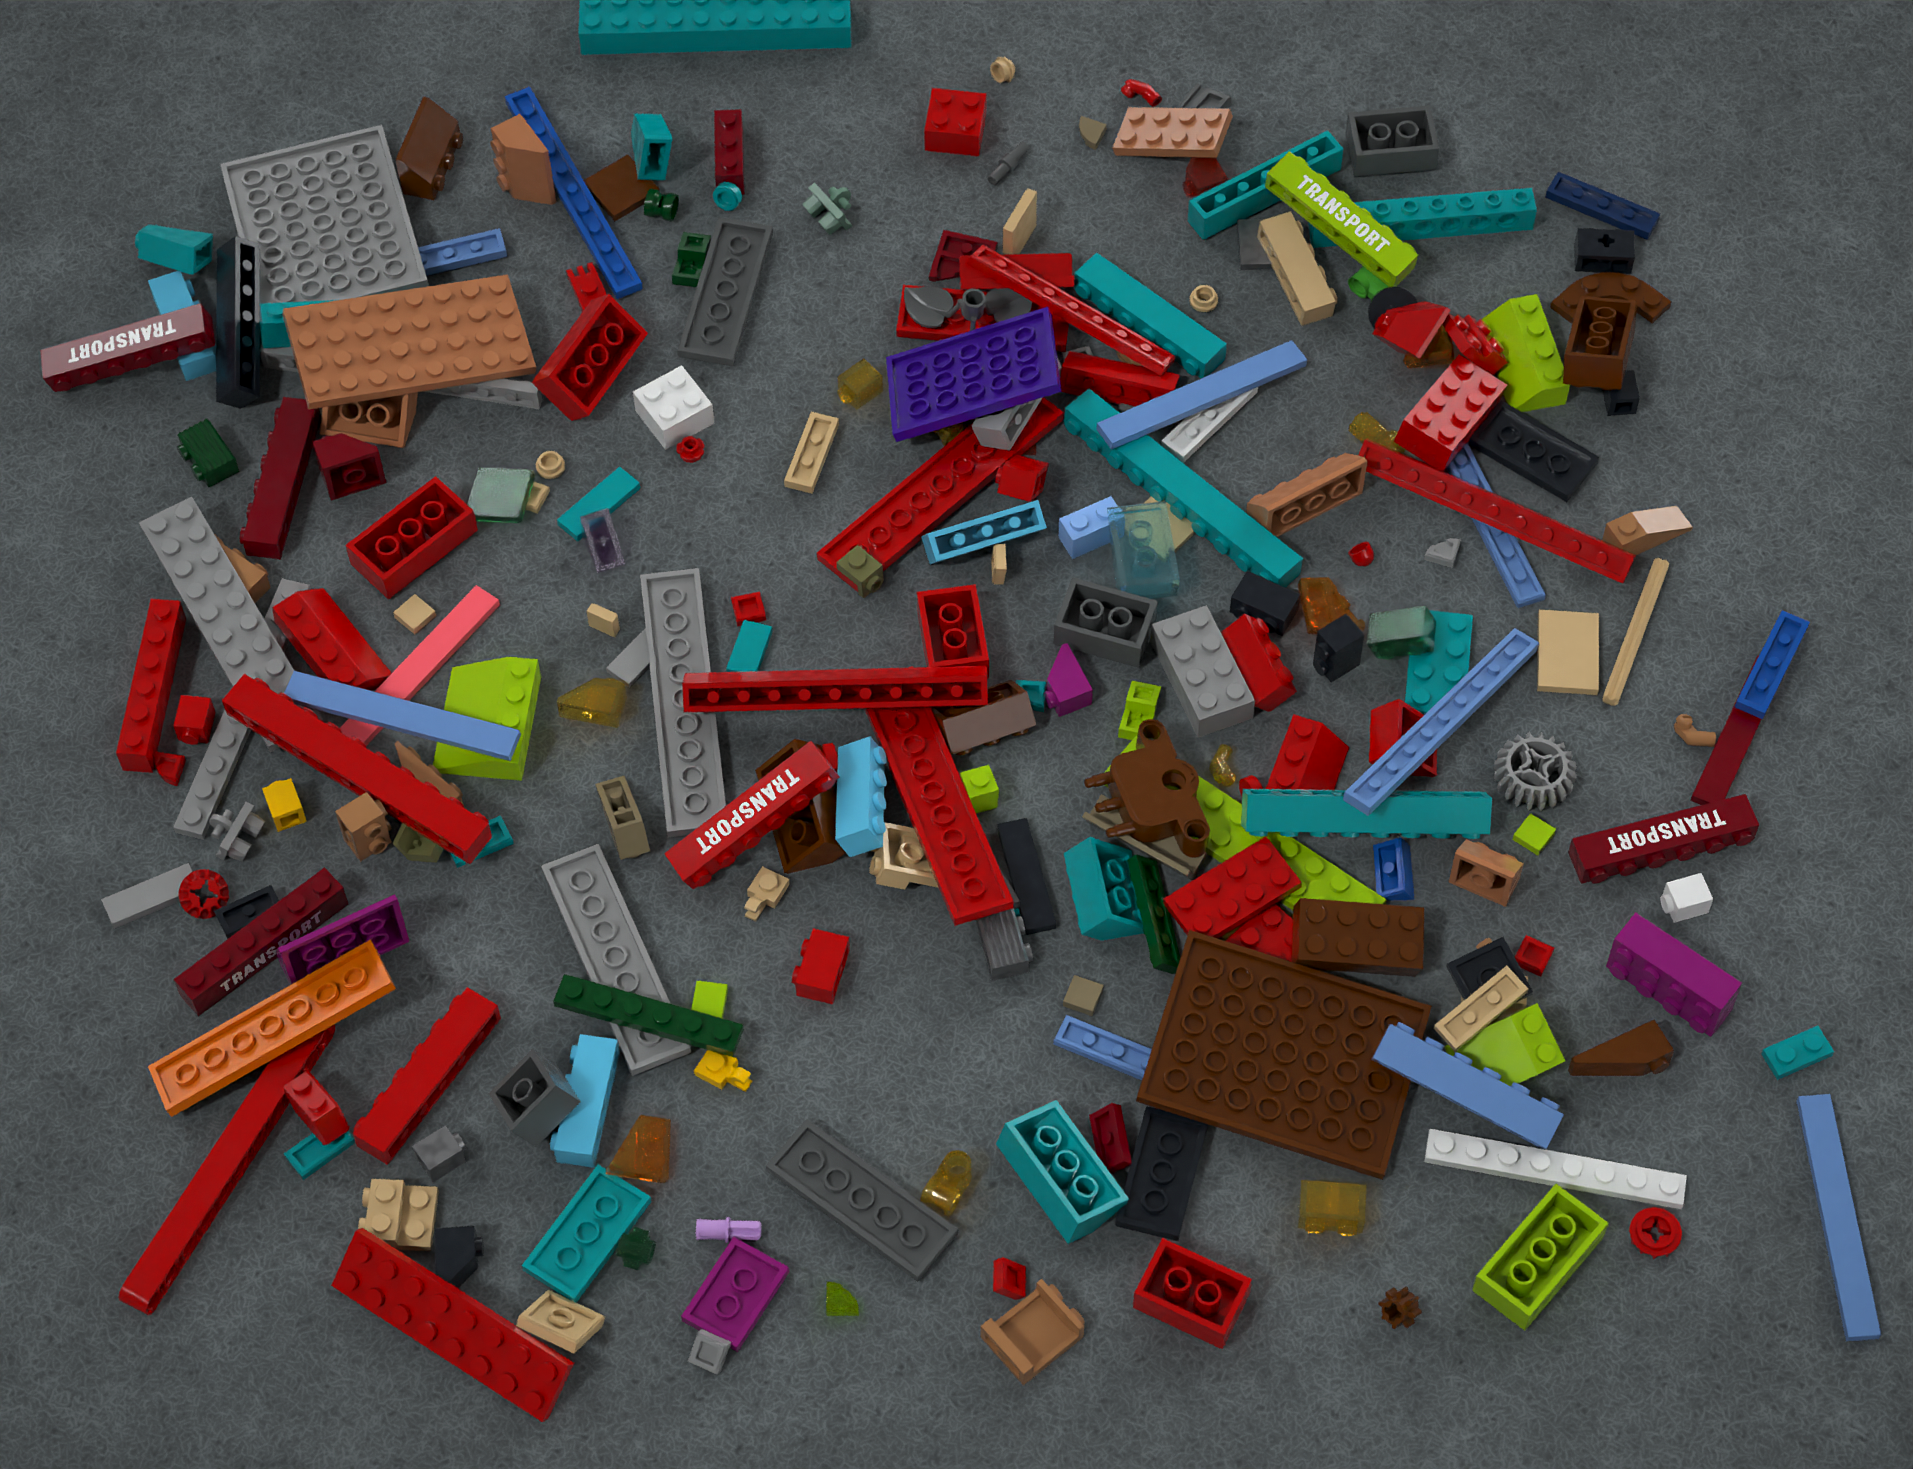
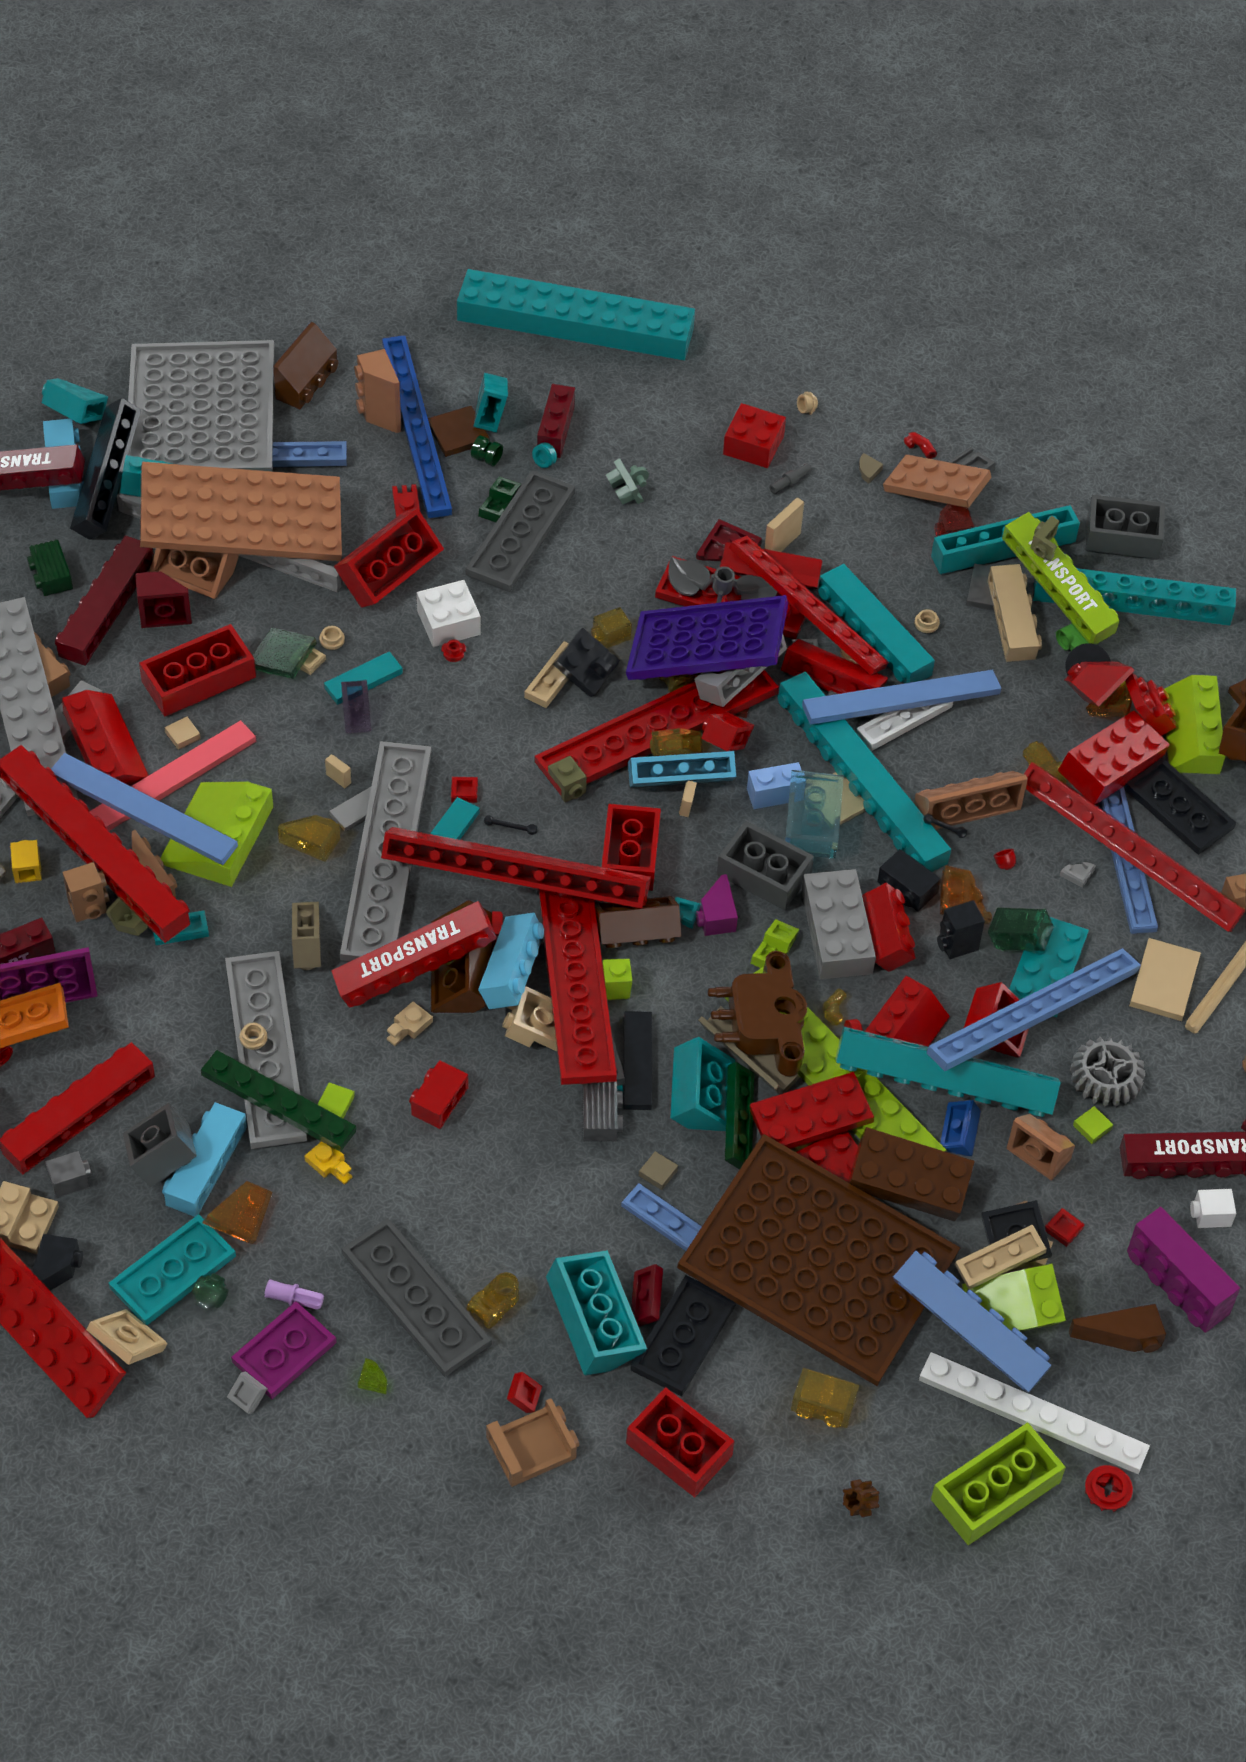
camera: 10 degrees right, 5 degrees down
(600, 941) = (250, 1030): none -> tan plate
(835, 638) = (531, 829): none -> black hinge
(843, 431) = (586, 662): none -> black hinge
(970, 504) = (676, 742): none -> clear yellow slope
(1304, 534) = (960, 831): none -> black hinge
(1312, 186) = (1041, 540): none -> olive bracket

